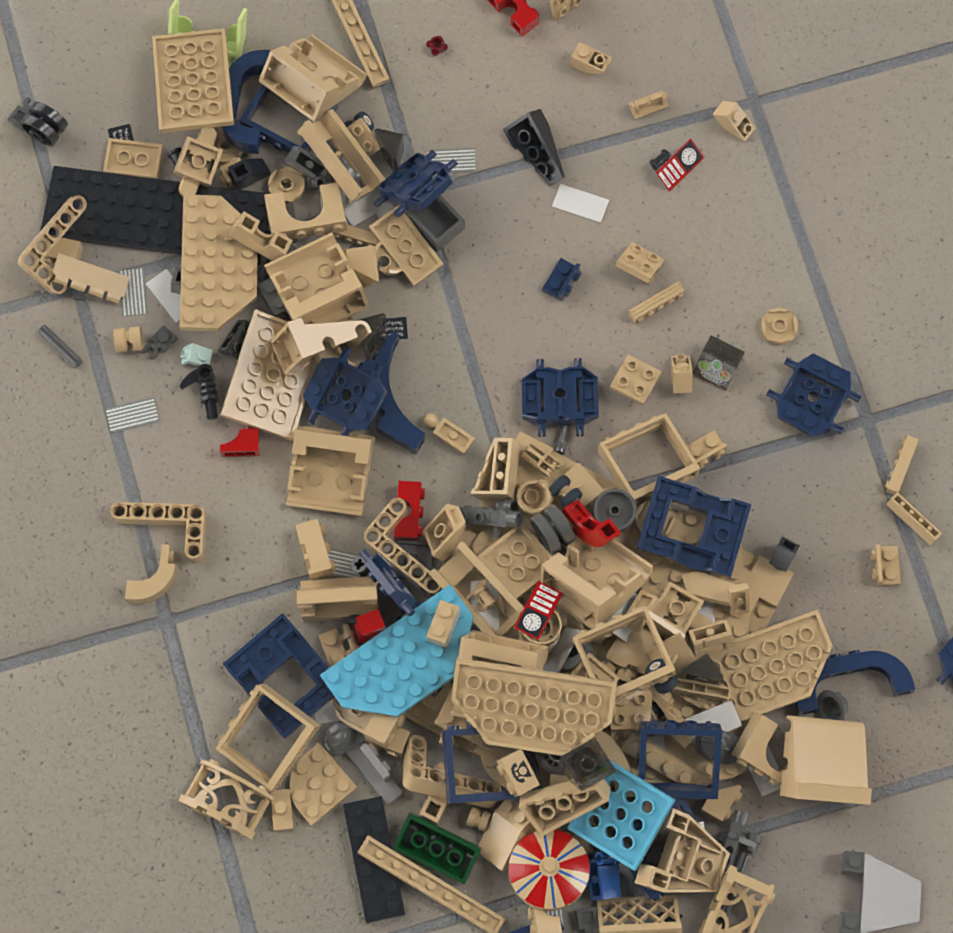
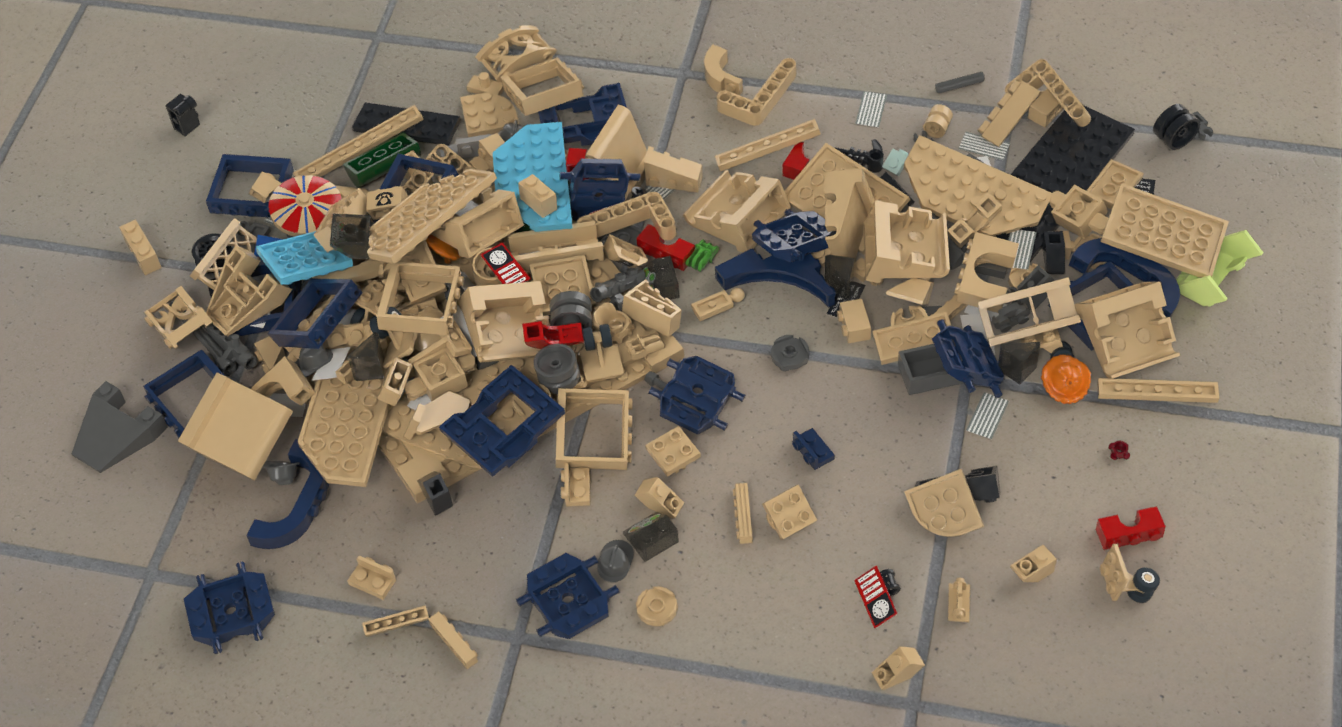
camera: 120 degrees right, 20 degrees down
(240, 476) = (767, 145): none -> tan plate
(253, 201) = (1026, 242): none -> light grey sticker
(386, 108) = (1066, 379): none -> orange piece
(403, 472) = (702, 255): none -> bright green arm
(410, 305) = (854, 321): none -> tan brick
(451, 490) = (661, 275): none -> clear smoke slope
(475, 354) = (789, 362): none -> dark grey plate
(571, 145) = (945, 505): none -> tan plate
(580, 203) = (883, 500): white sticker -> none
(754, 381) = (615, 560): none -> dark grey piece
(837, 849) = (174, 376): none -> dark blue window

